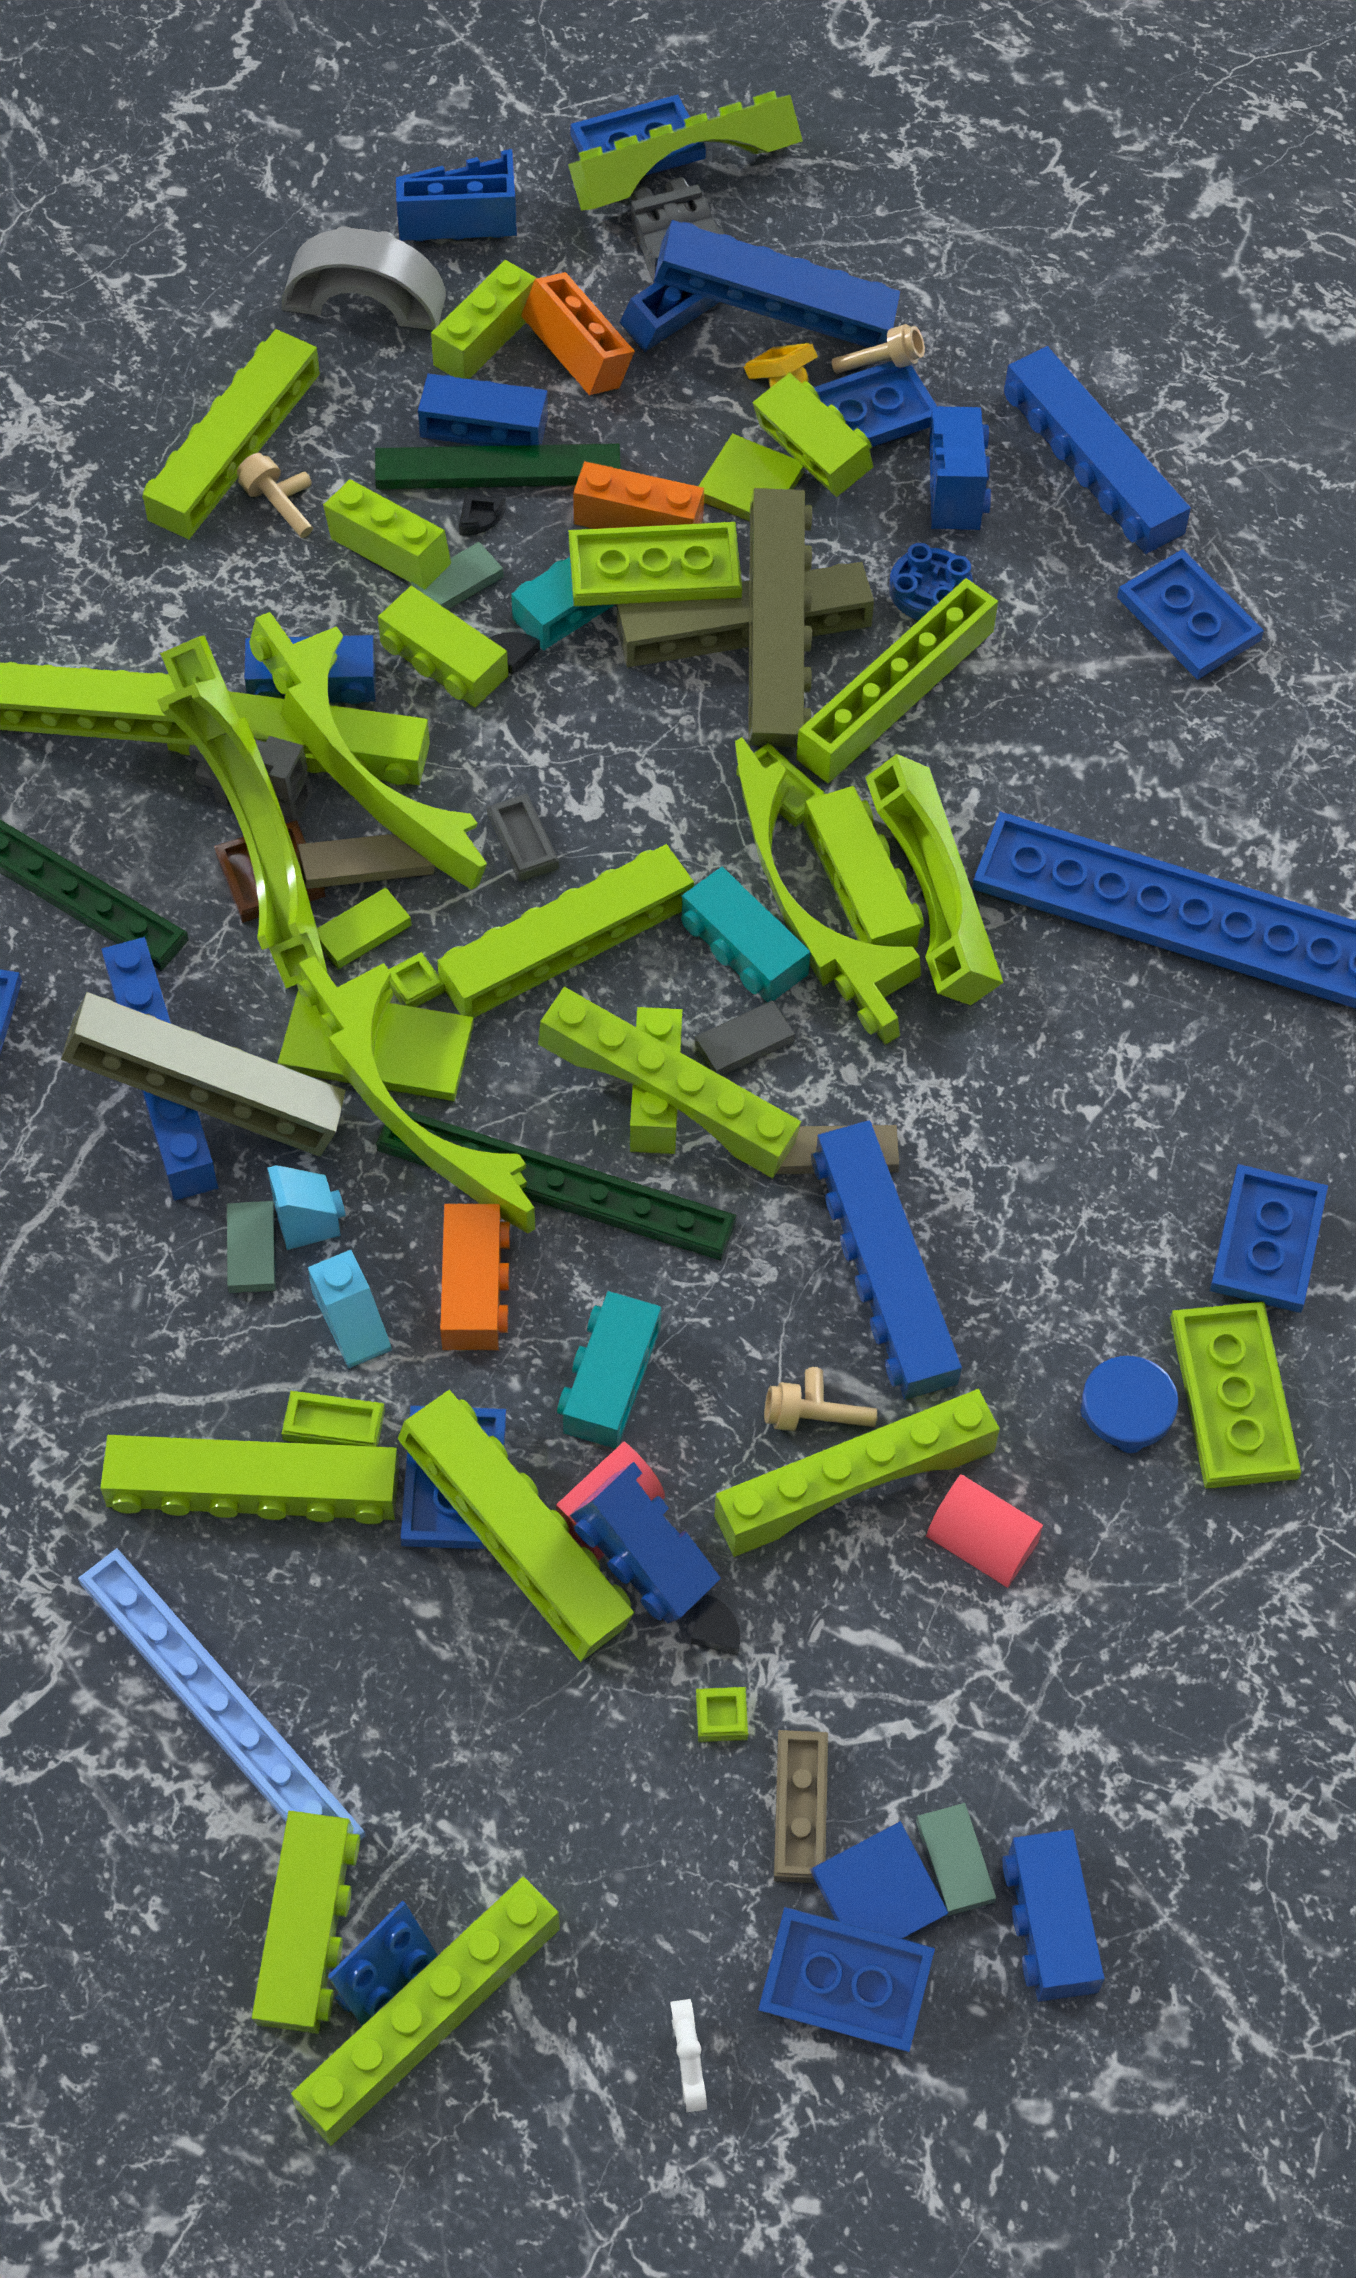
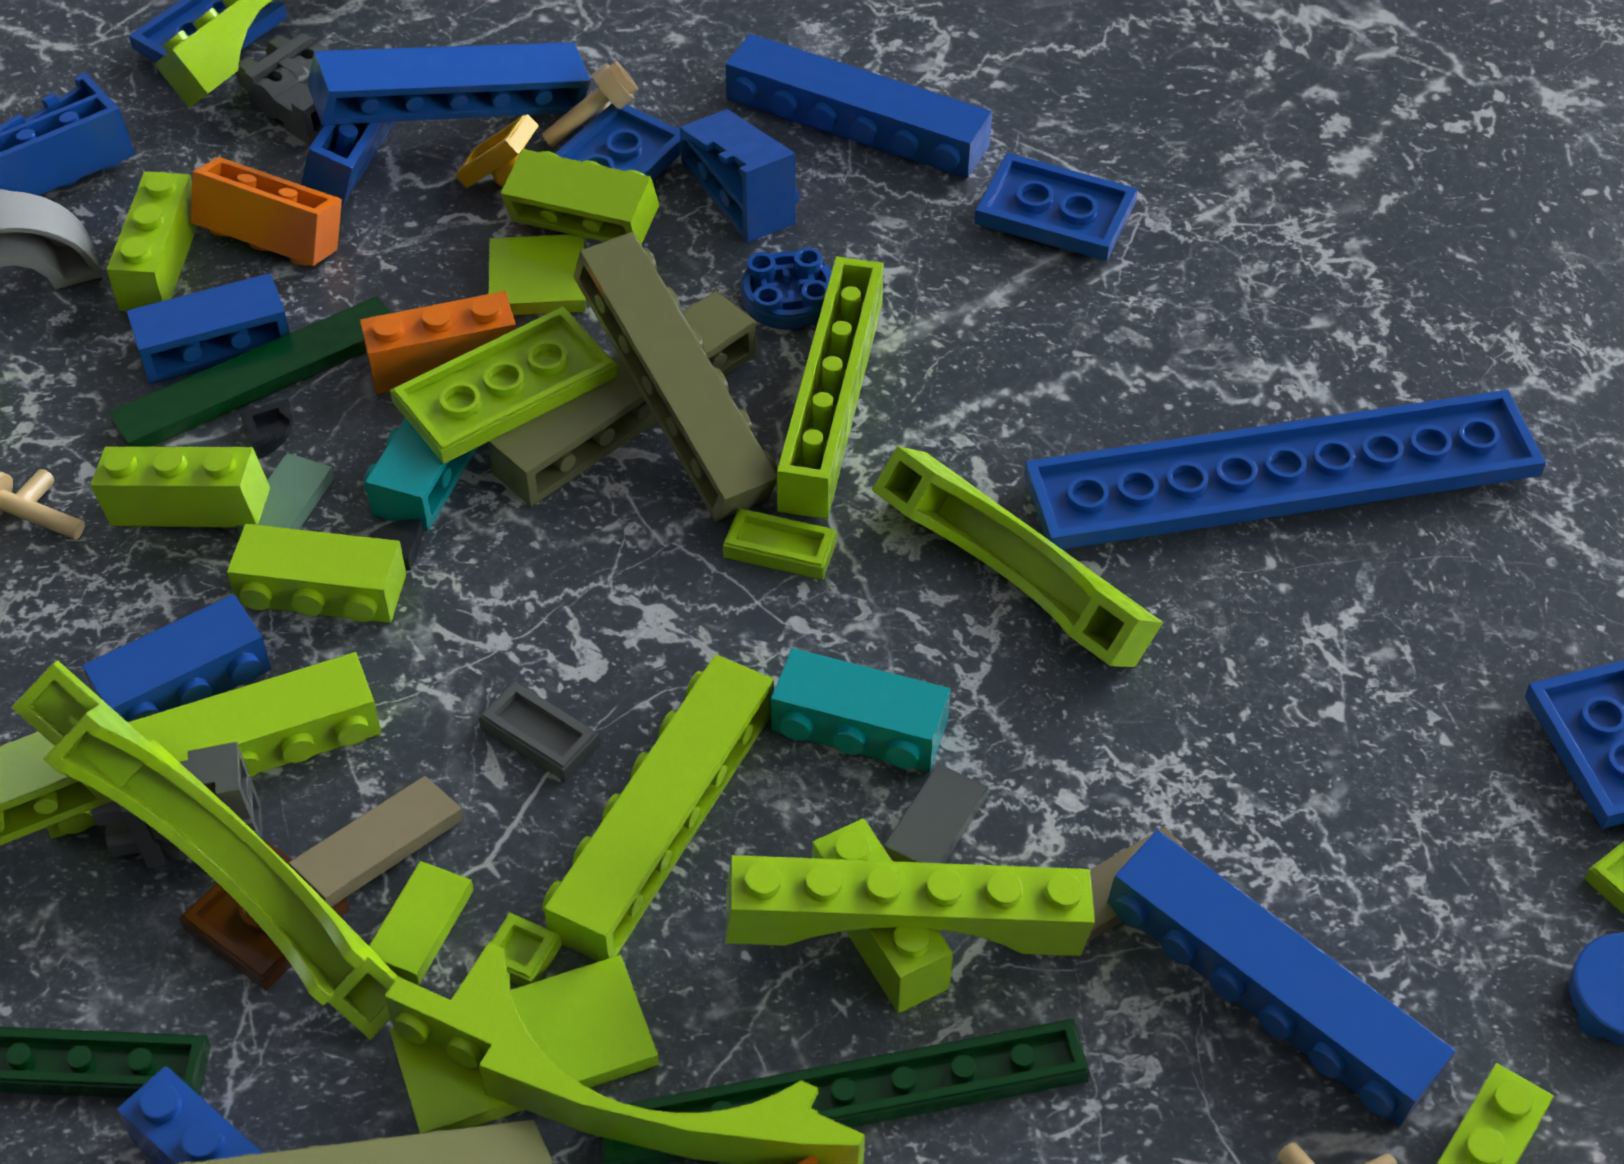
camera: 30 degrees left, 10 degrees down
(302, 675) = (188, 669): lime slope -> none
(858, 968) = (1008, 682): lime slope -> none
(861, 869) = (934, 588): lime brick -> none

